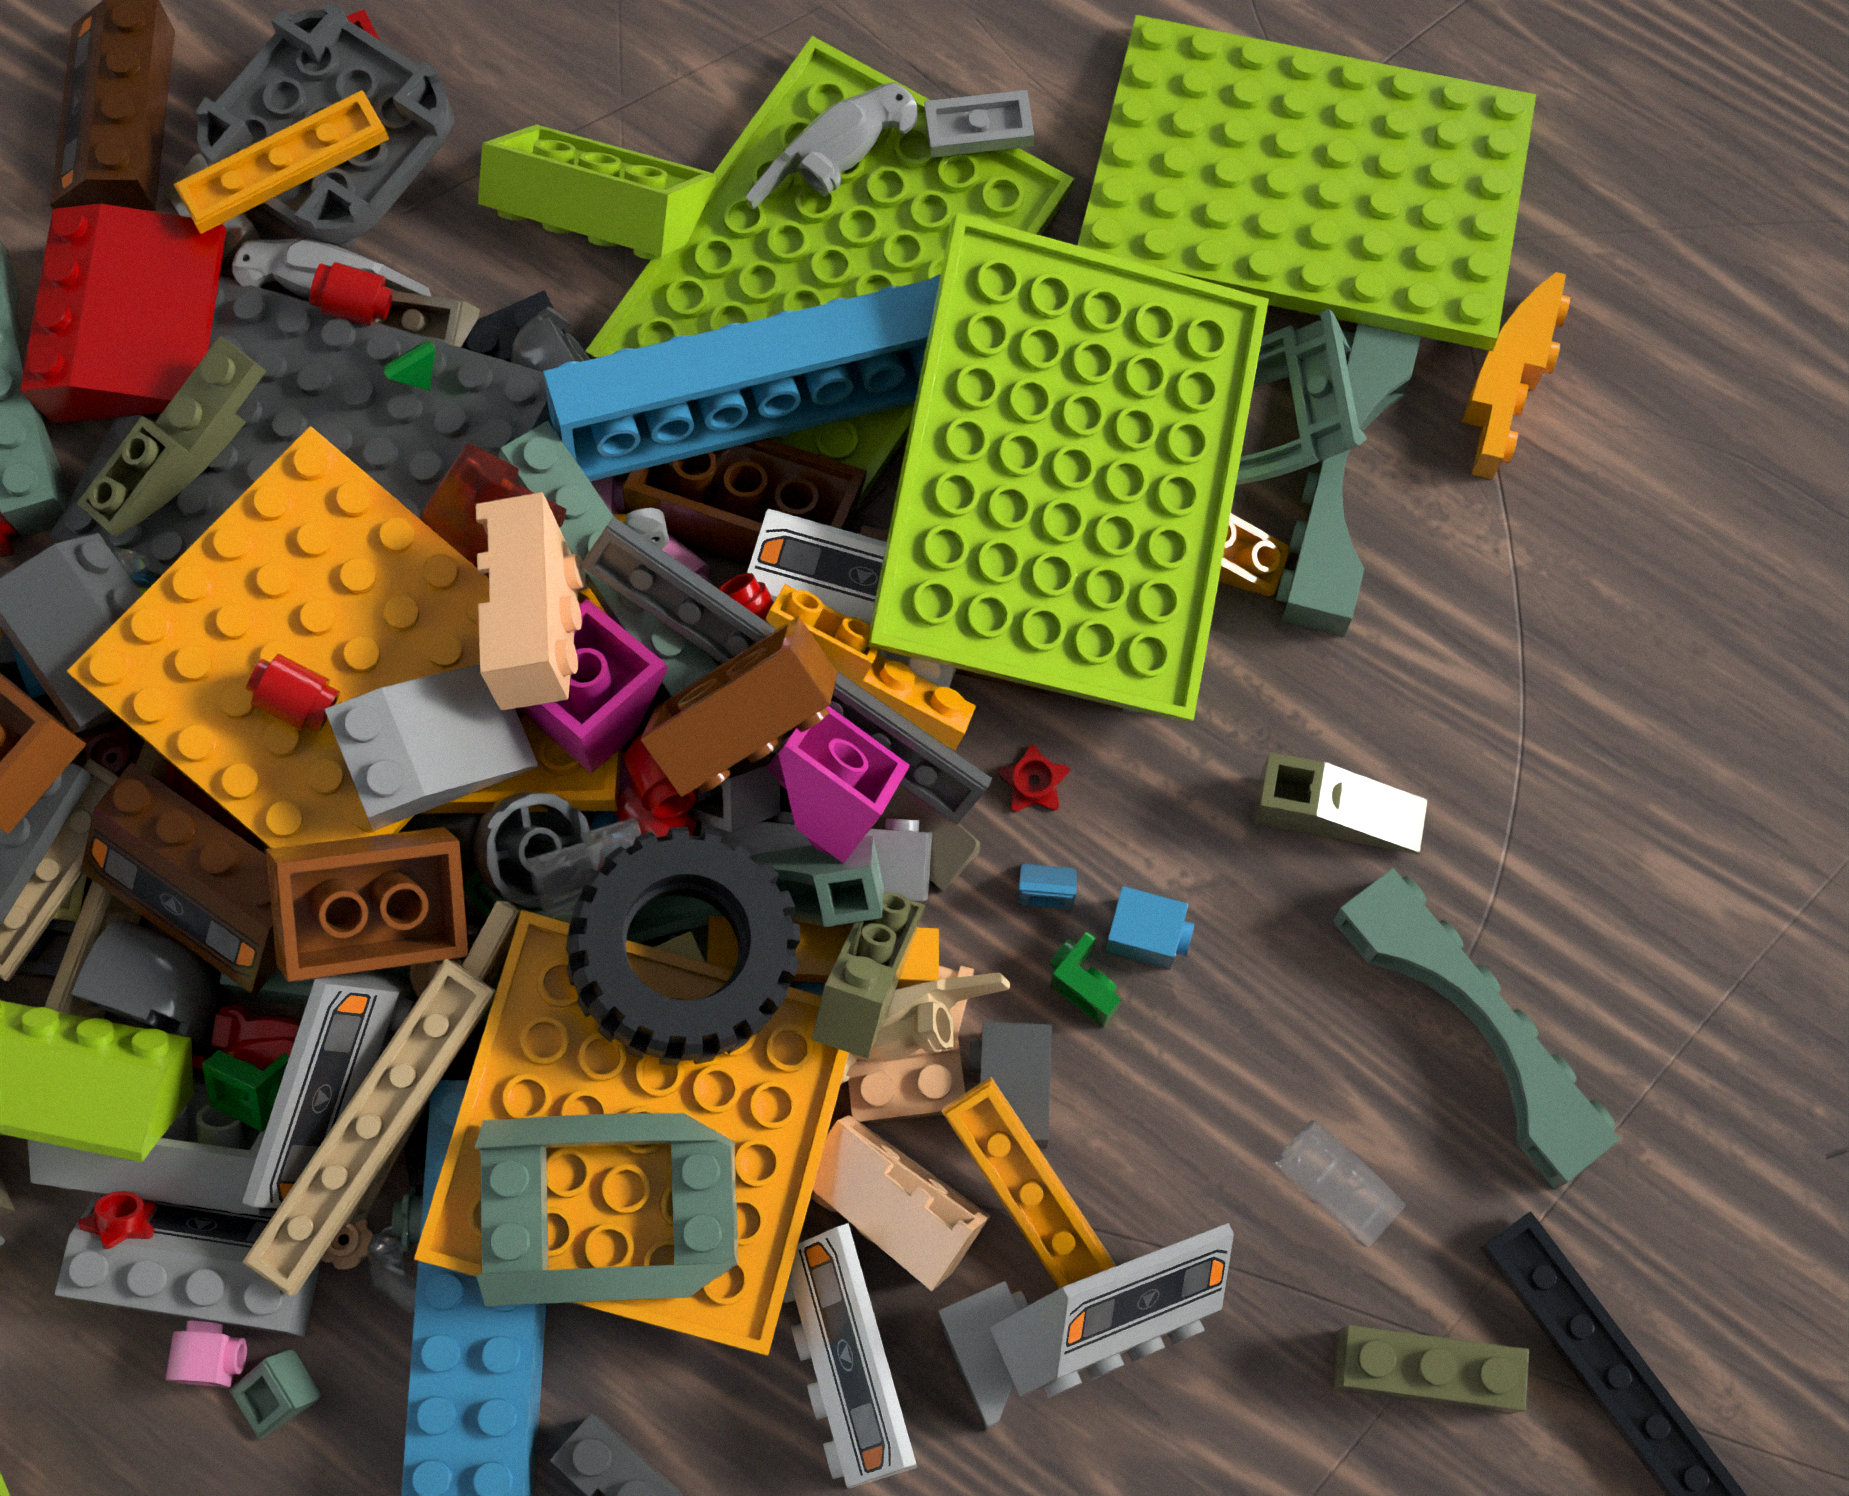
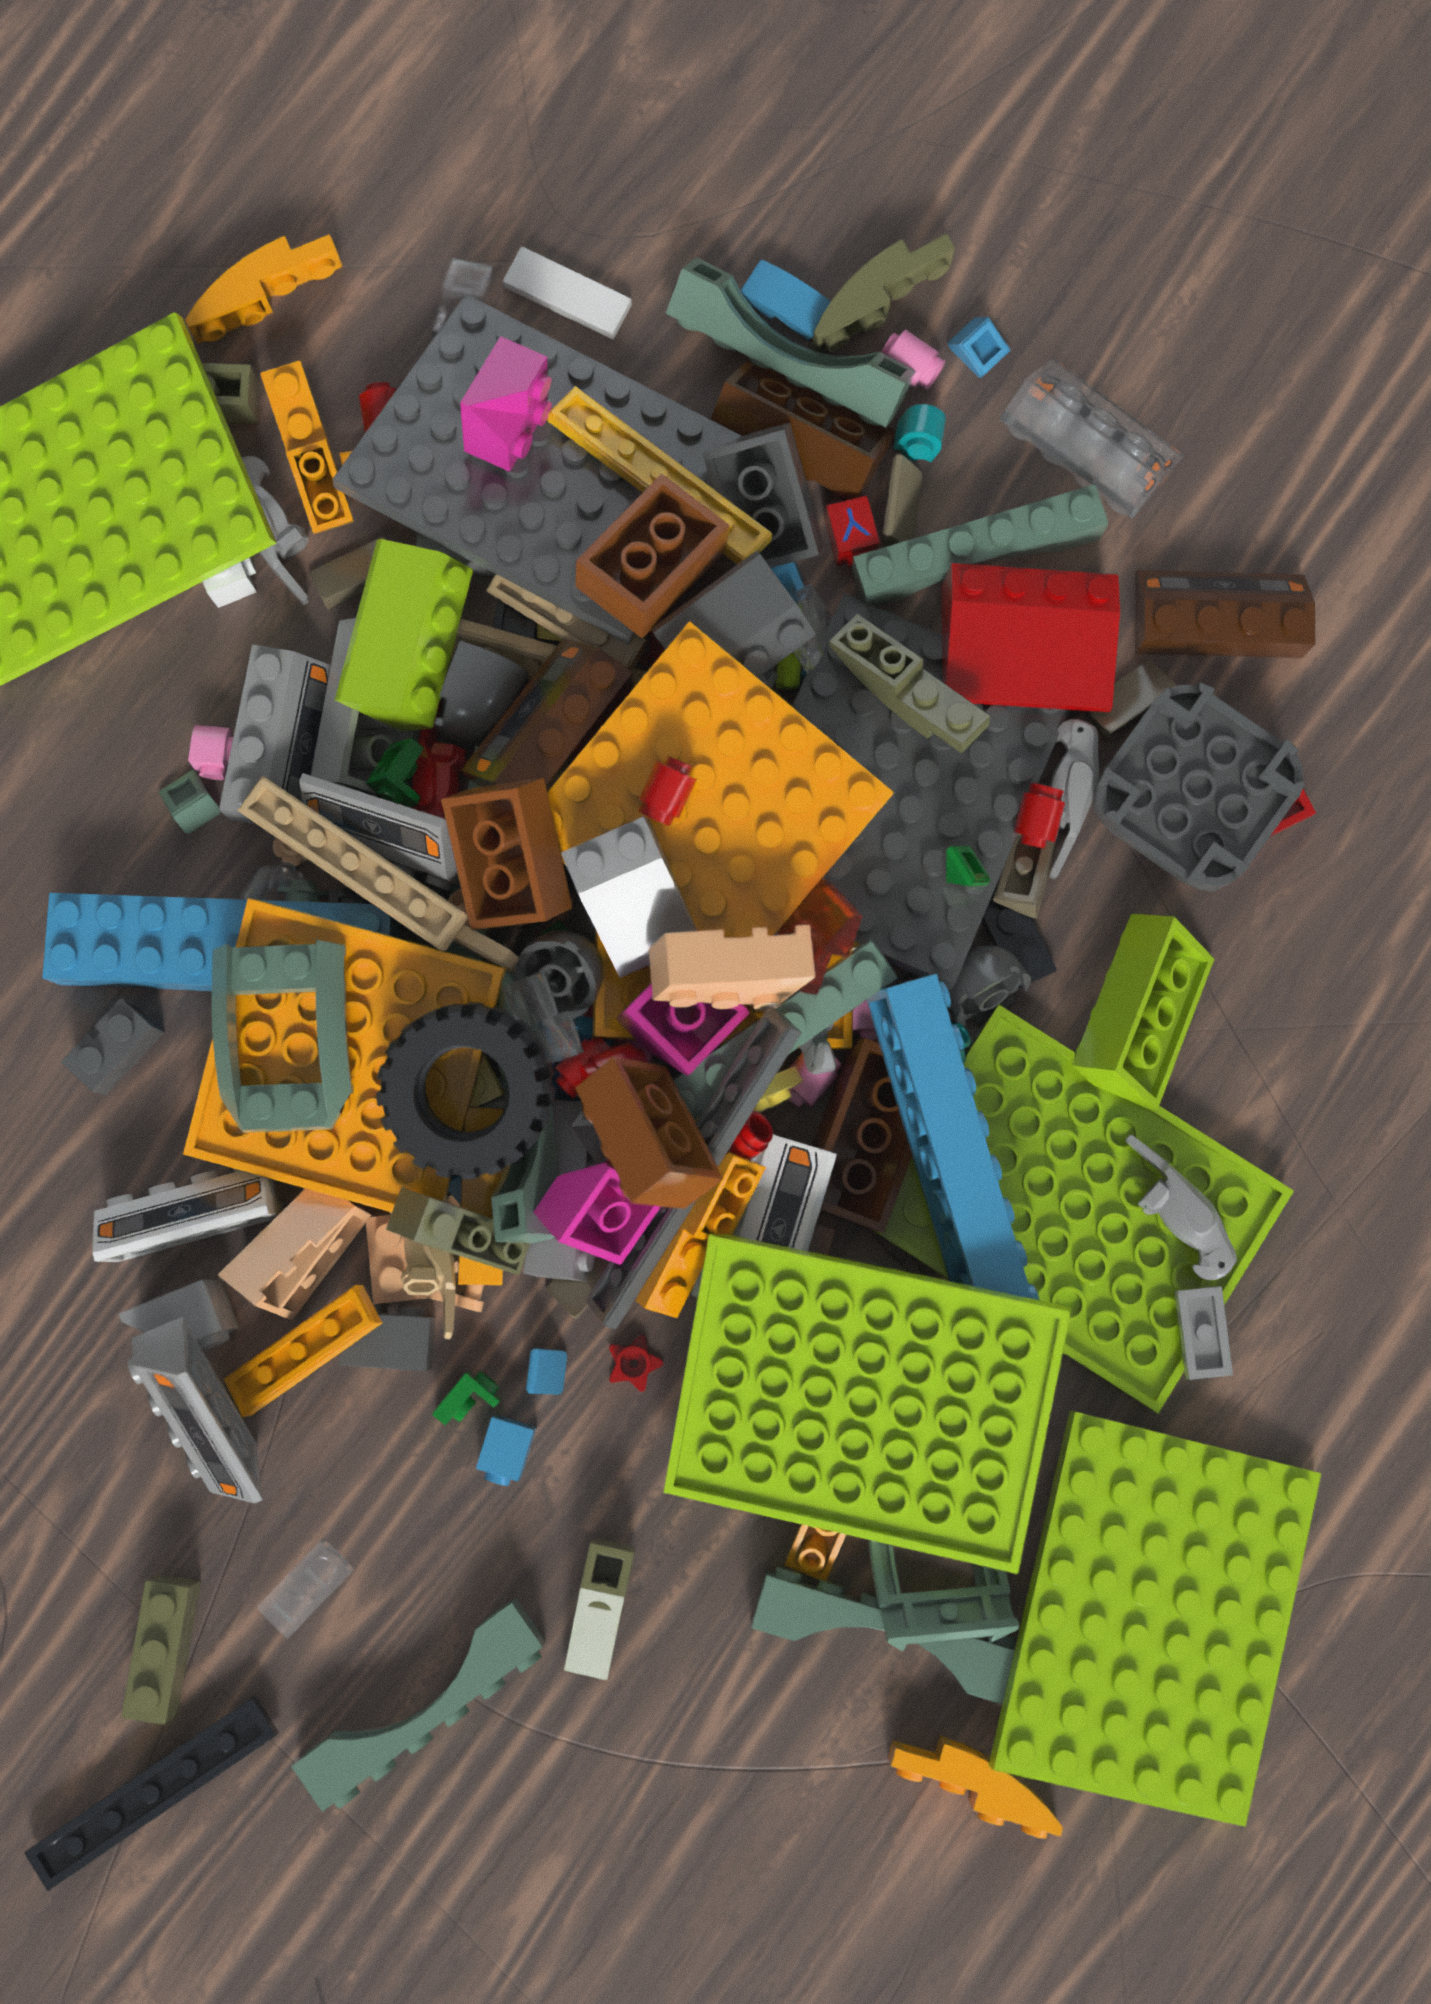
camera: 90 degrees right, 10 degrees up
(119, 1217) = (317, 684): red plate -> none
(281, 161) = (1159, 754): light orange tile -> none

